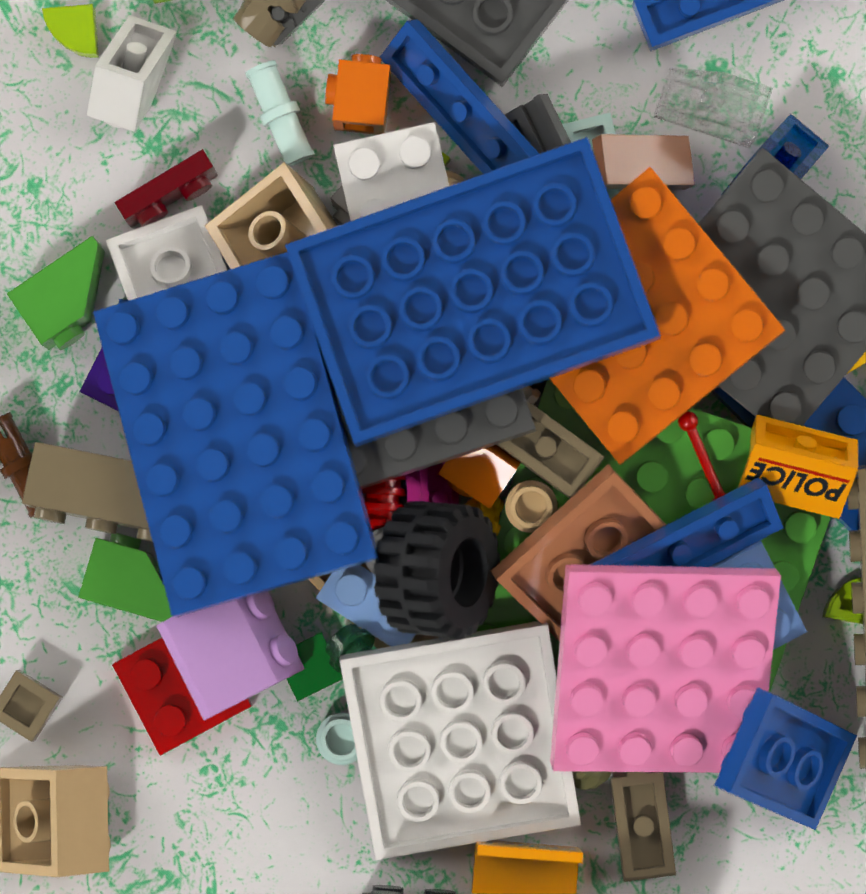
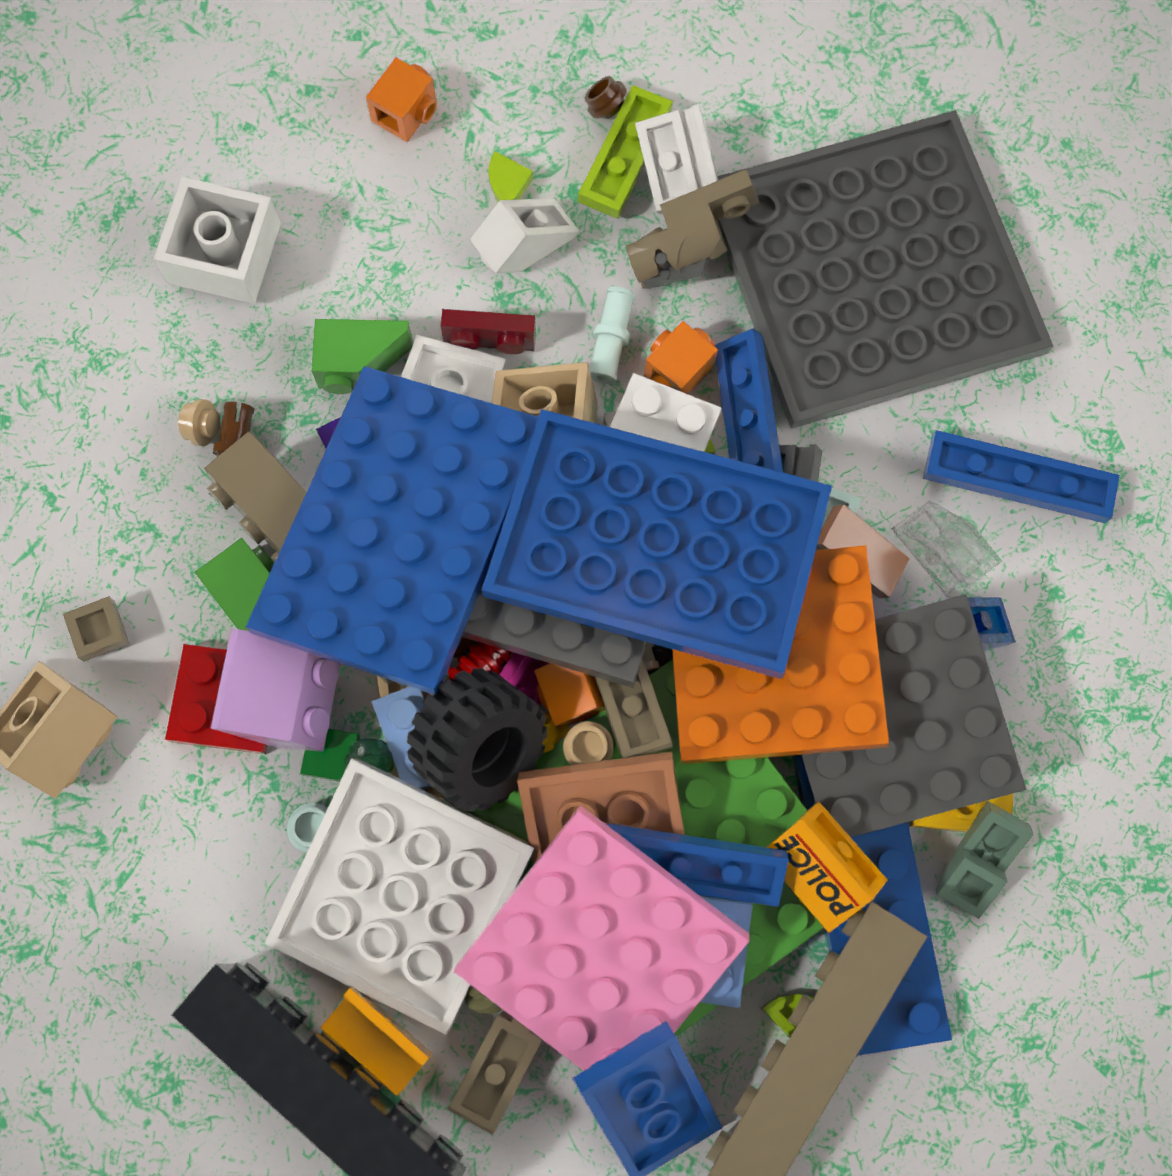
camera: 30 degrees right, 10 degrees down
(688, 423) = (759, 768): red hinge -> none

